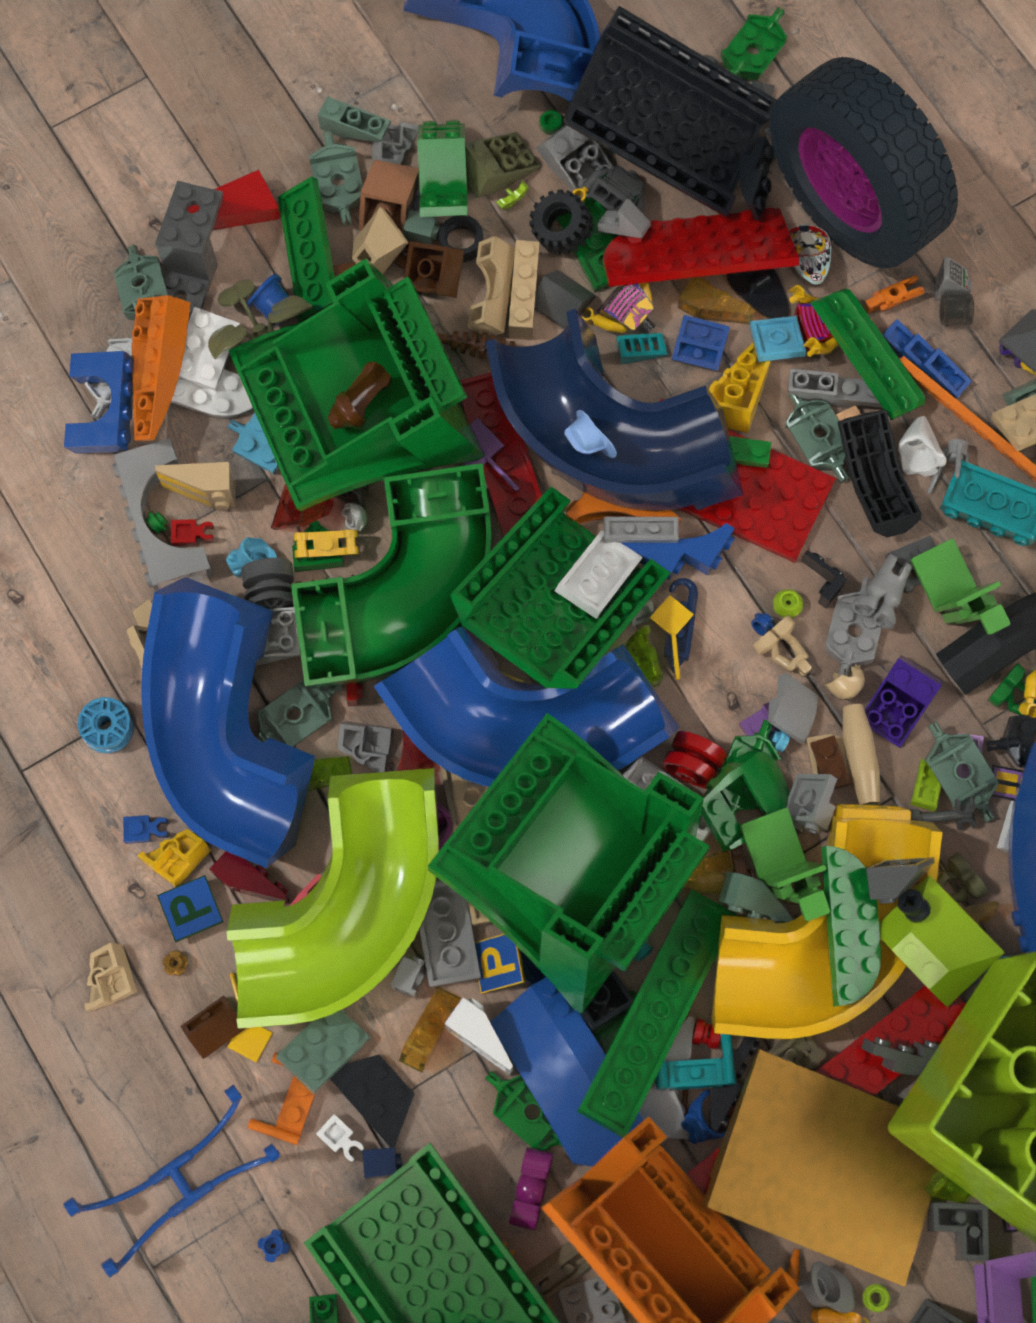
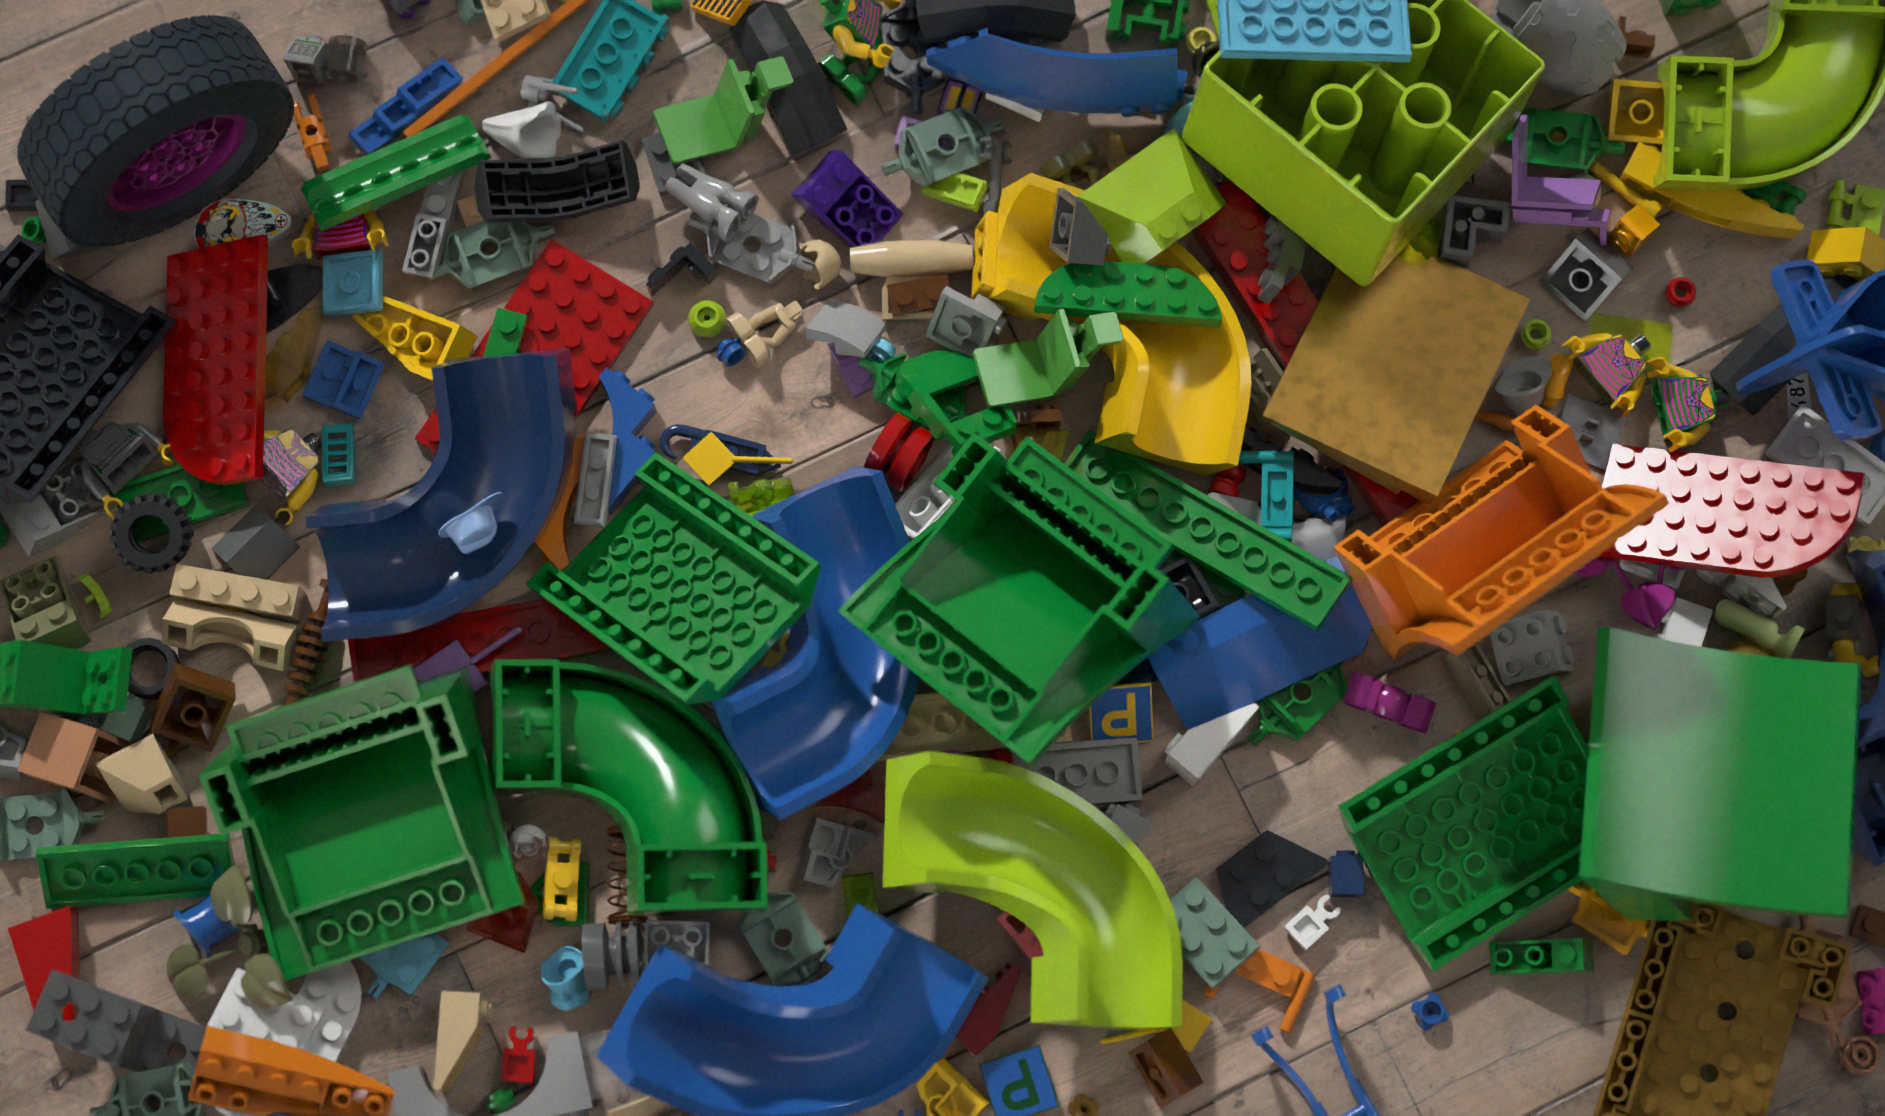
camera: 85 degrees left, 5 degrees up
(351, 404) = (393, 822): reddish brown hair -> none
(428, 1030) = (1193, 804): clear yellow slope -> none
(598, 575) = (654, 536): white plate -> none
(626, 222) = (166, 447): light grey slope -> none
(752, 896) = (1078, 403): sand green slope -> none
(753, 176) = (125, 280): black slope -> none
(914, 906) = (1122, 211): black wheel -> none

